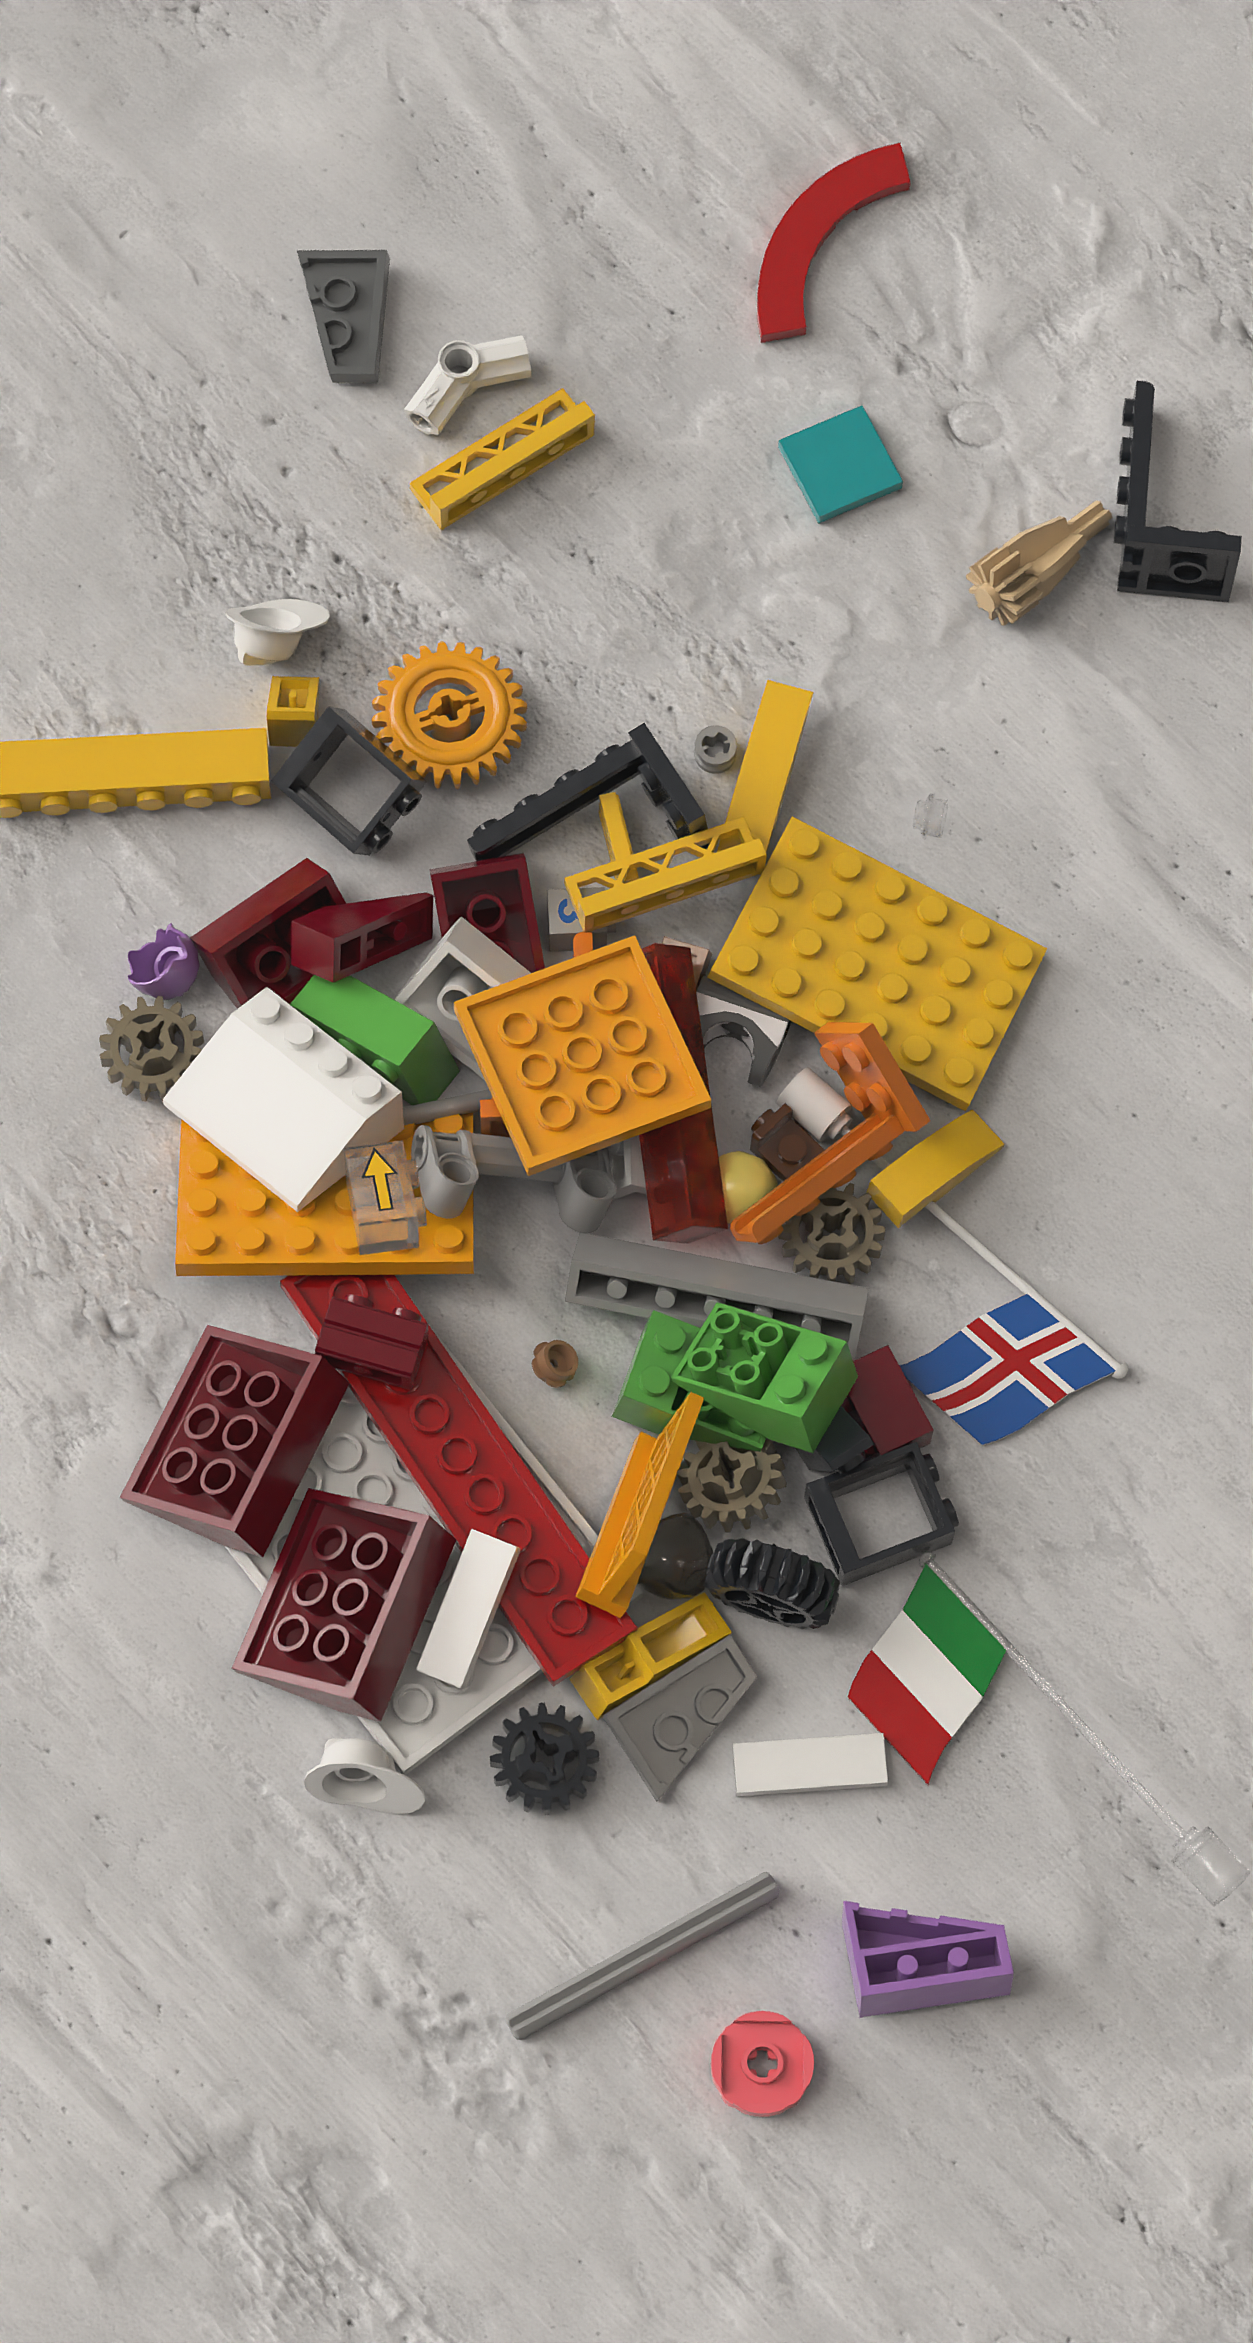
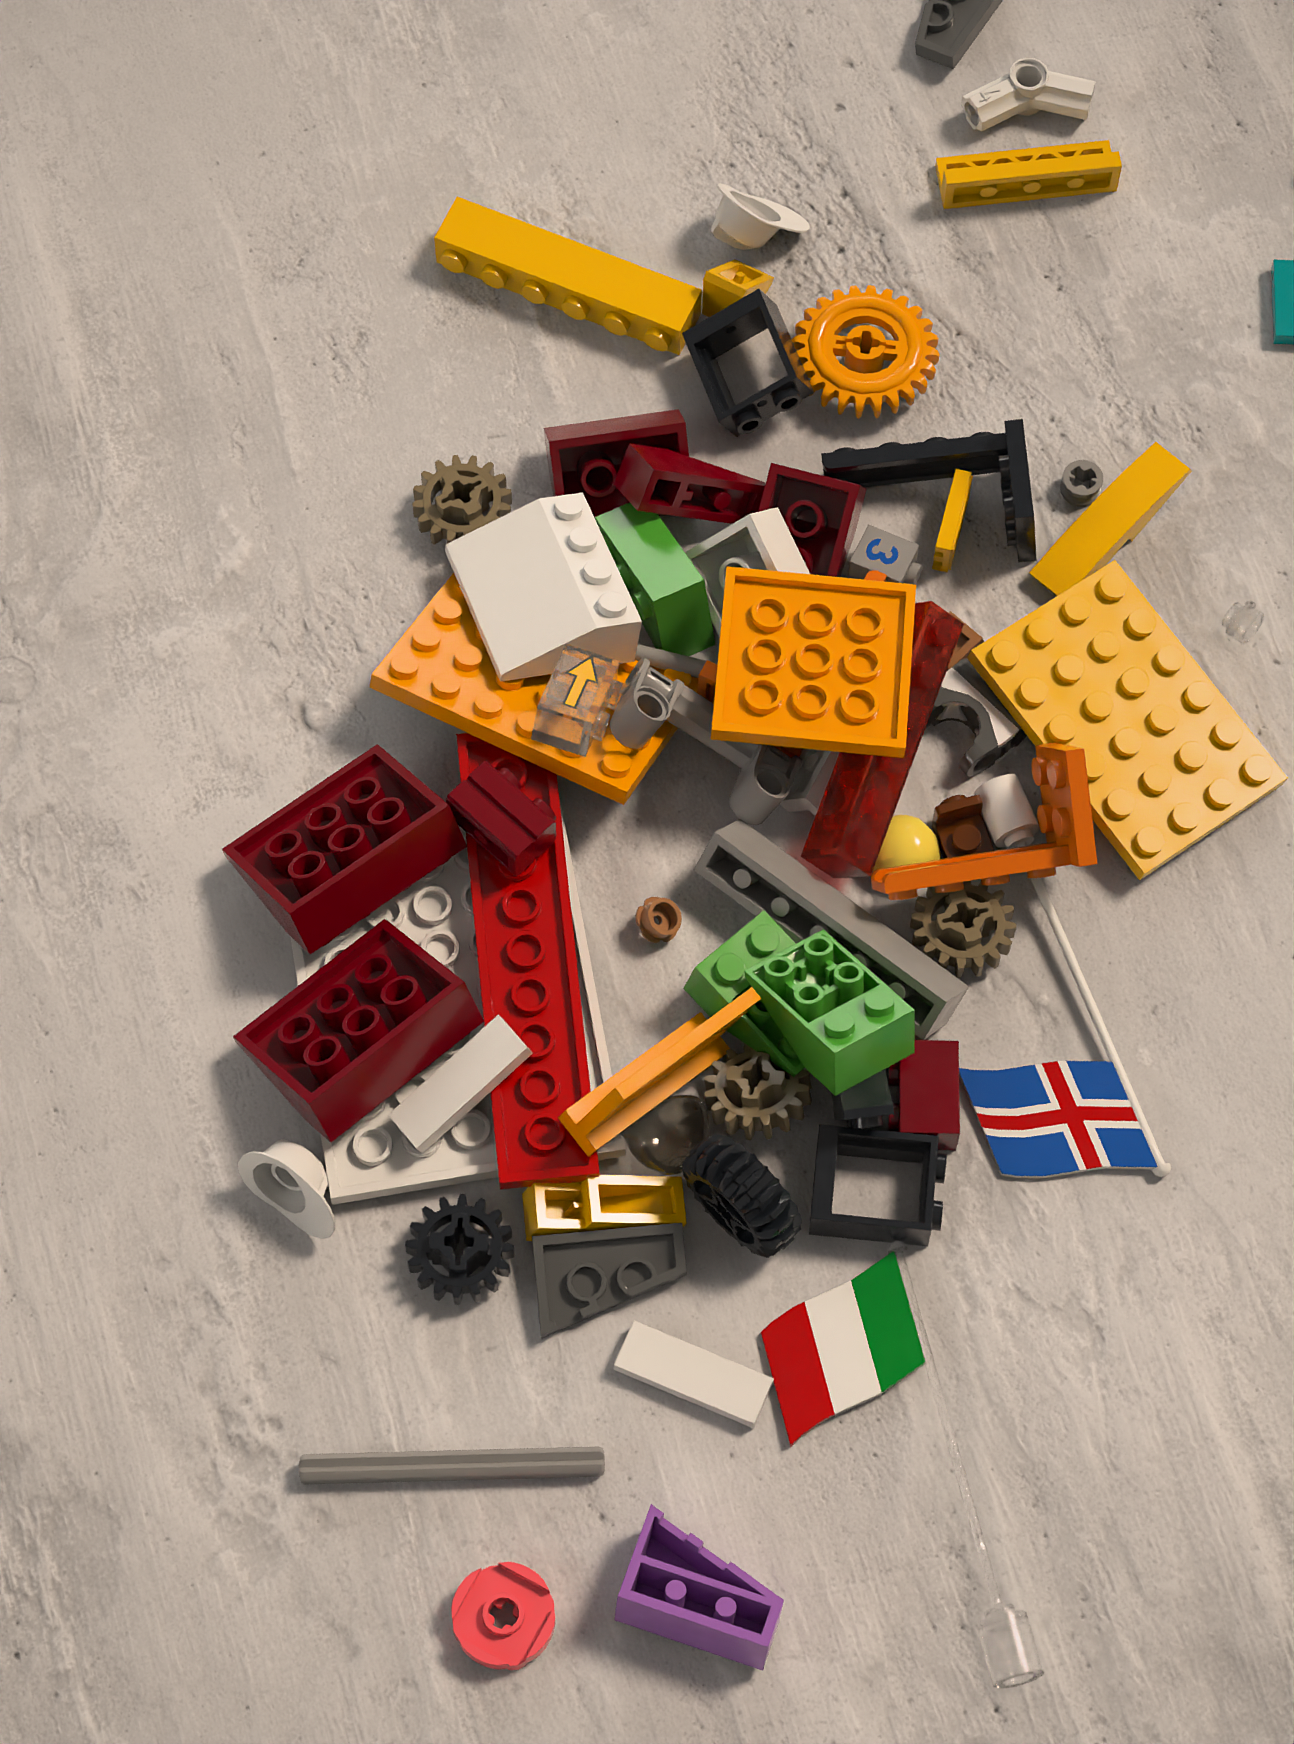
camera: 30 degrees right, 5 degrees down
(164, 966) = (510, 443): medium lavender hair -> none
(666, 883) = (976, 564): yellow fence -> none
(933, 1167) = (1084, 912): yellow slope -> none

